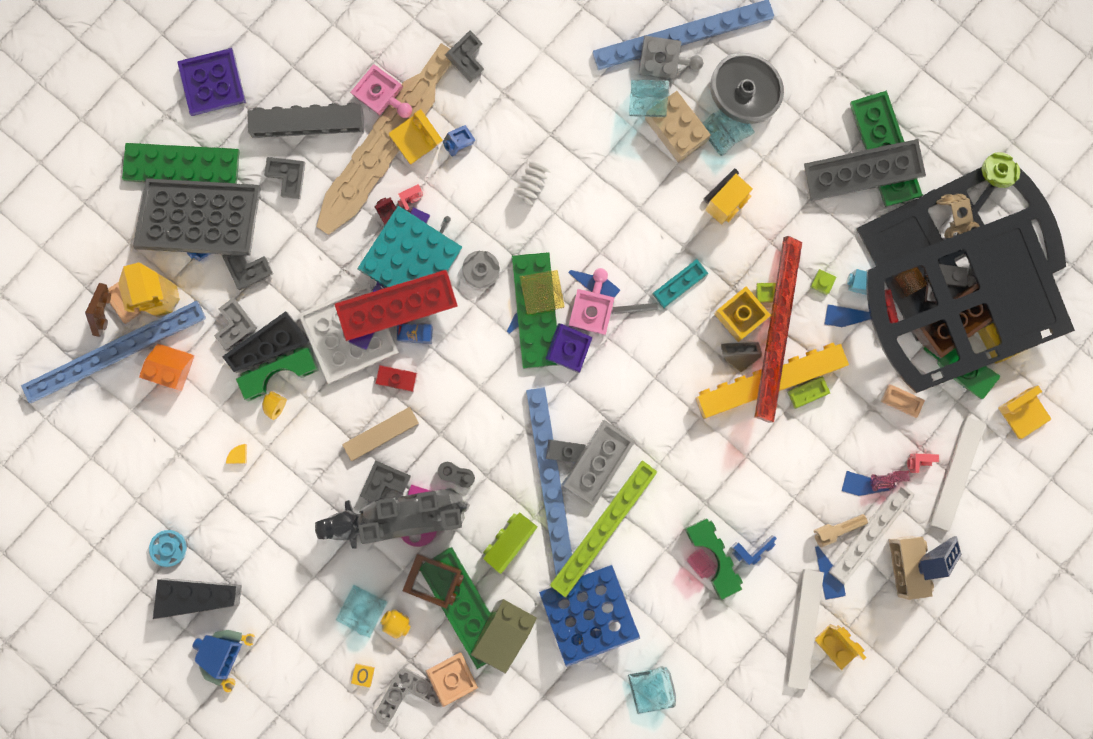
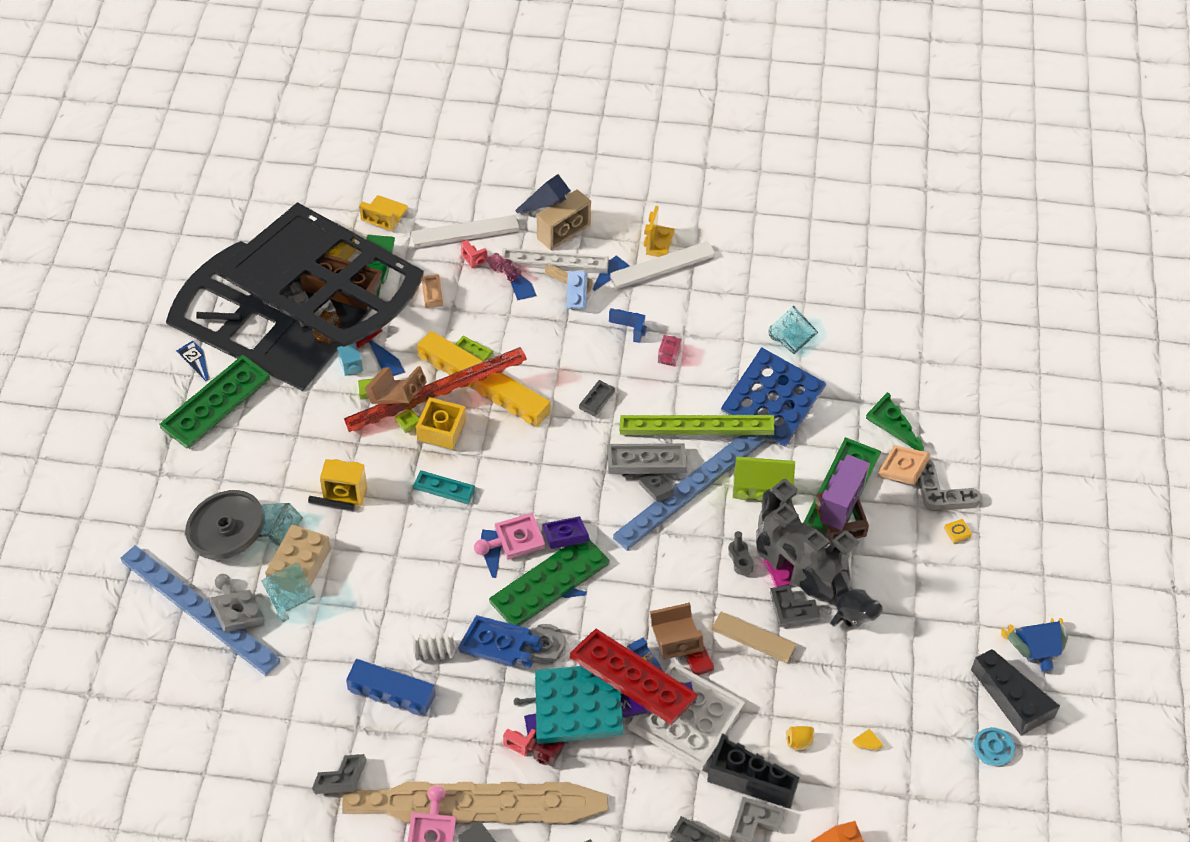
camera: 120 degrees left, 30 degrees down
(255, 383) = (796, 760): green arch -> none
(361, 611) = (910, 560): clear light blue slope -> none
(395, 623) = (898, 528): yellow head -> none
(415, 137) = (455, 770): yellow bracket -> none
(420, 373) = (676, 631): none -> medium nougat panel
(436, 586) = (843, 491): none -> medium lavender brick
(458, 139) = (433, 733): bracket -> none
(503, 233) = (499, 642): none -> blue tile
(503, 635) = (833, 442): olive slope -> none
(506, 705) = (891, 420): none -> green wing
(517, 132) = (390, 687): none -> blue brick
(542, 292) = (531, 577): clear yellow tile -> none
(635, 308) = (490, 506): dark grey piece -> none
(690, 465) = (596, 398): none -> dark grey plate
(725, 580) = (647, 360): green arch -> none
(741, 354) = (476, 411): dark grey slope -> none
(803, 297) = (386, 390): none -> medium nougat panel
(818, 524) = (576, 289): none -> light blue plate
(864, 170) = (248, 402): dark grey plate -> none
(950, 160) = (195, 358): none -> sticker
(959, 225) = (234, 327): tan piece -> none
(1000, 170) = (183, 313): lime plate -> none

